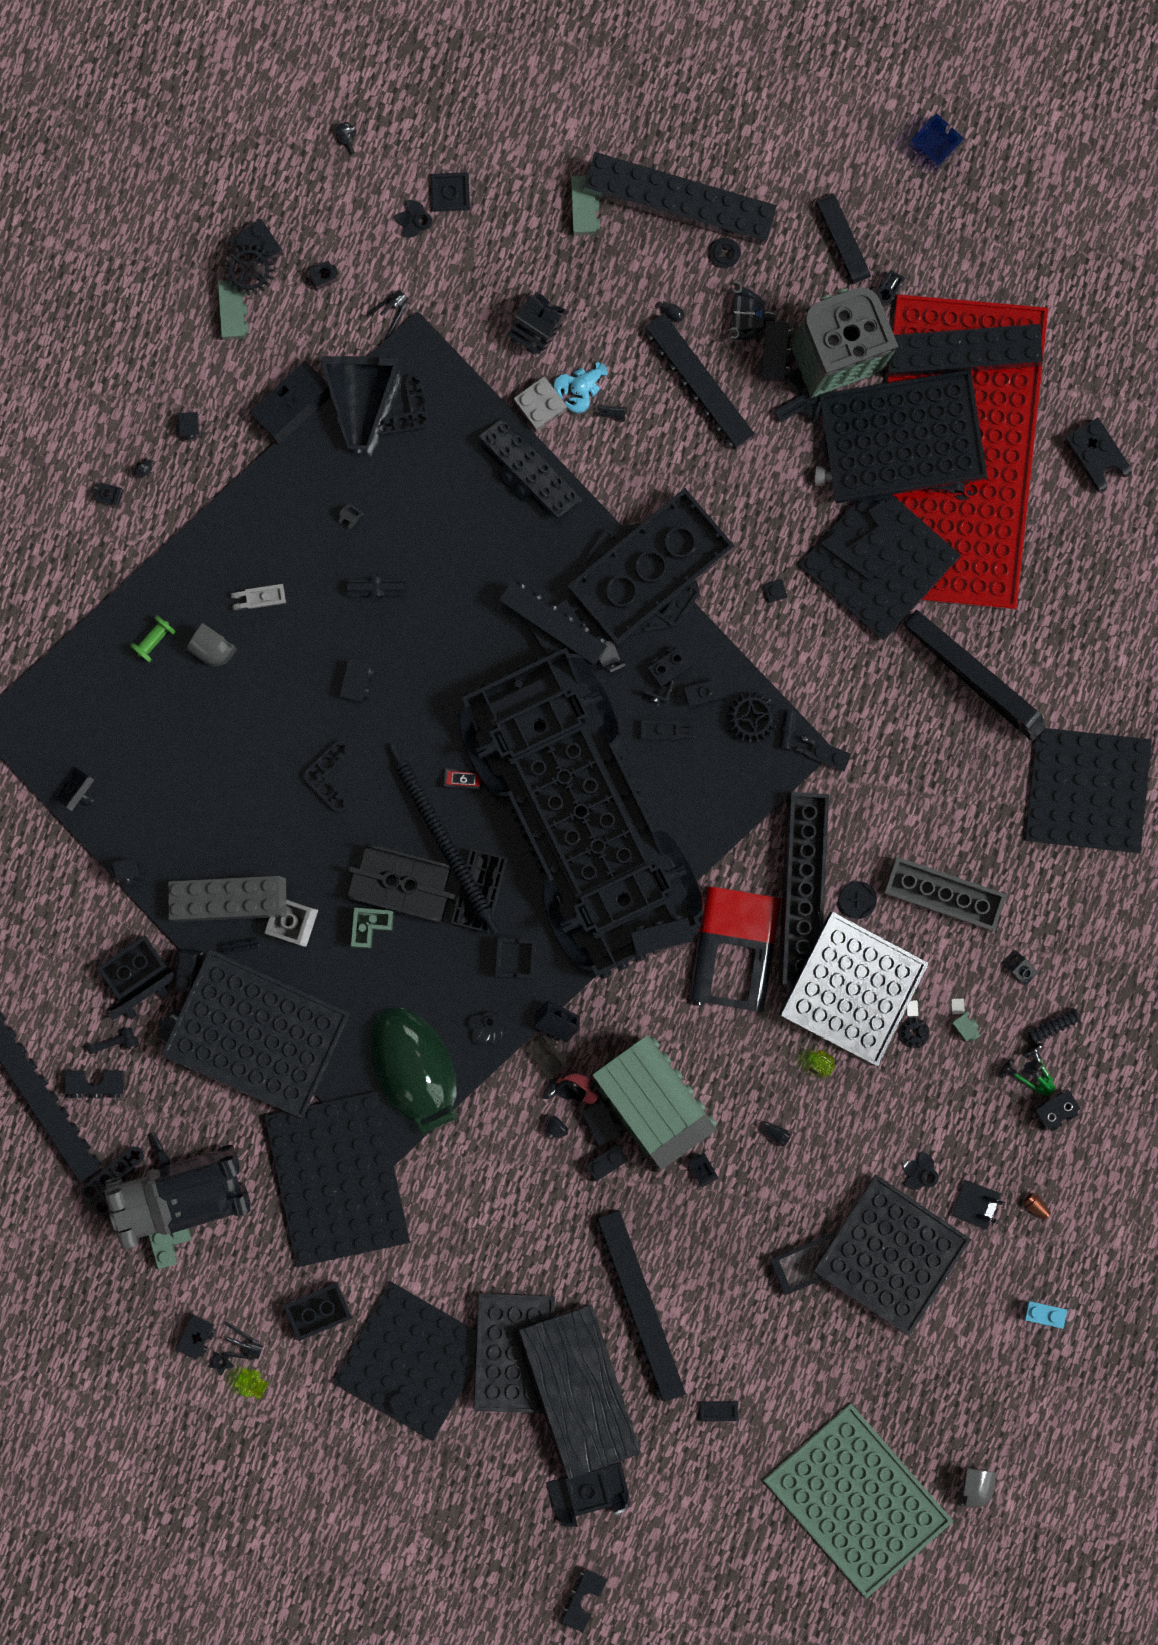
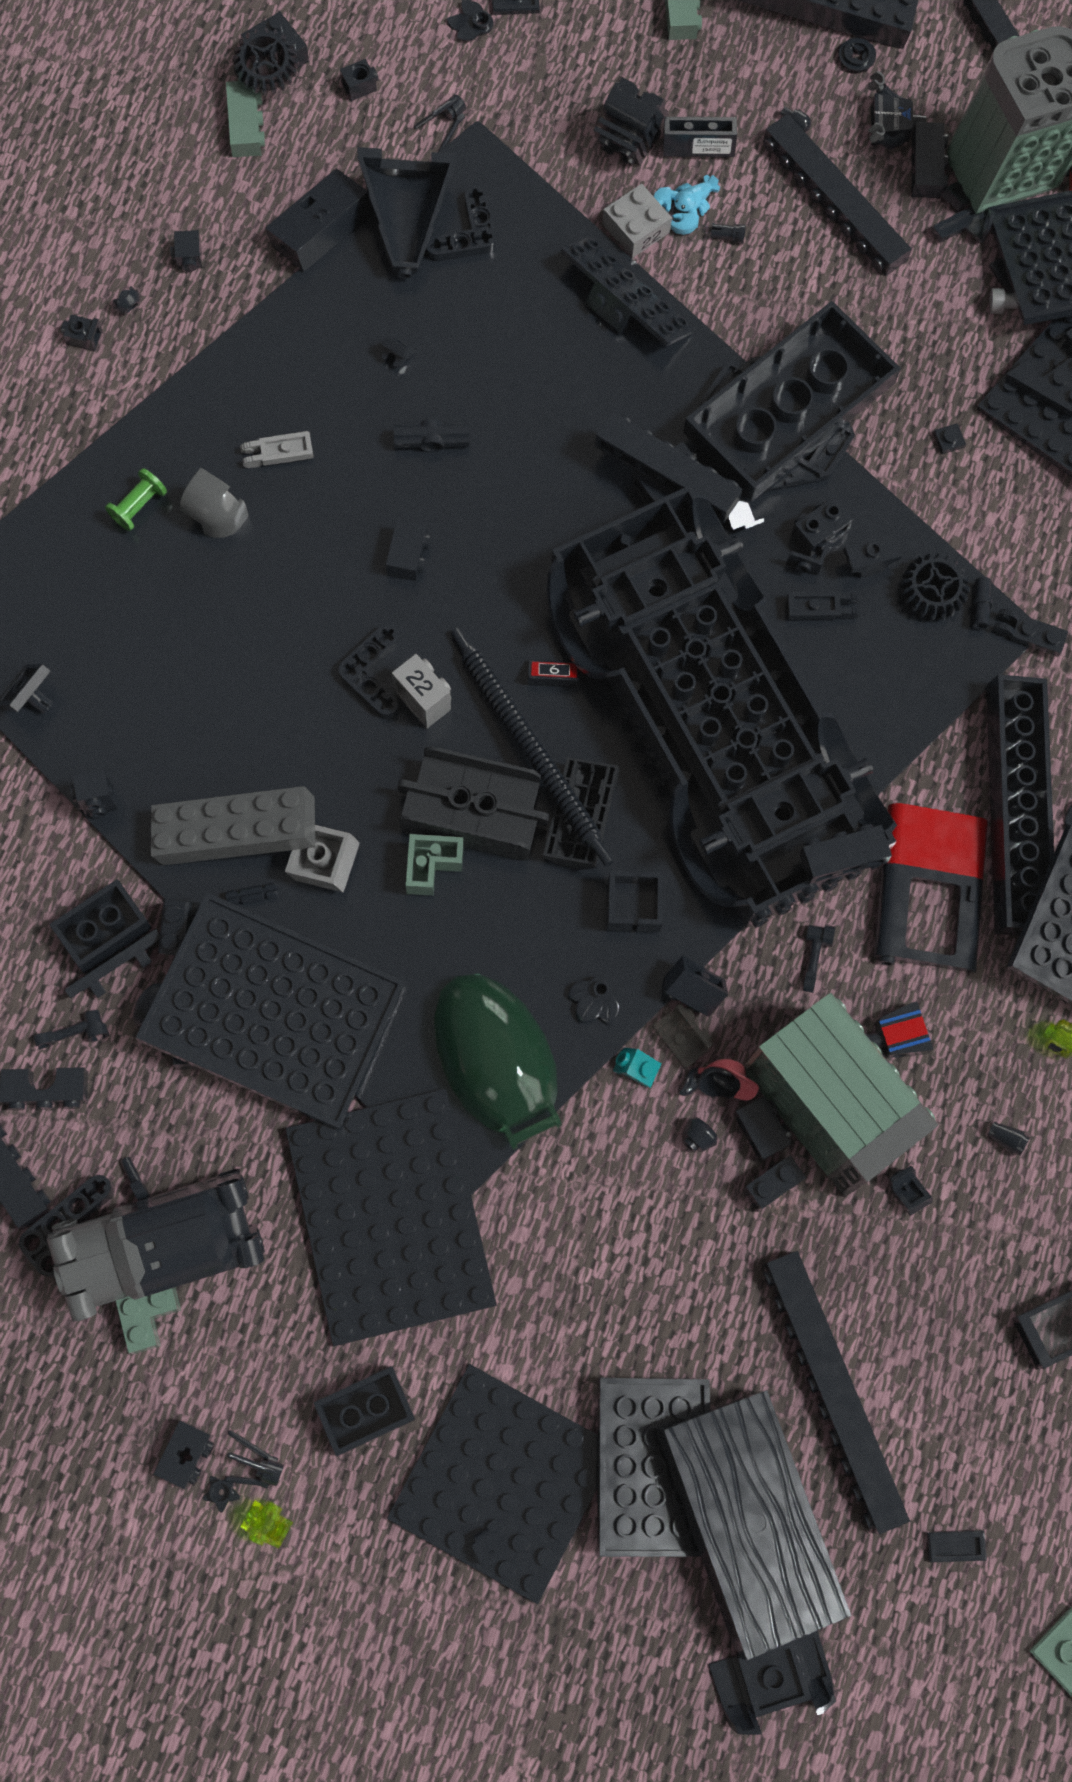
camera: 10 degrees left, 10 degrees down
(364, 796) = (422, 690): none -> light grey brick
(514, 1076) = (637, 1066): none -> teal bracket
(592, 331) = (700, 136): none -> black brick
(650, 984) = (818, 936): none -> black brick
(703, 1057) = (902, 1033): none -> torso

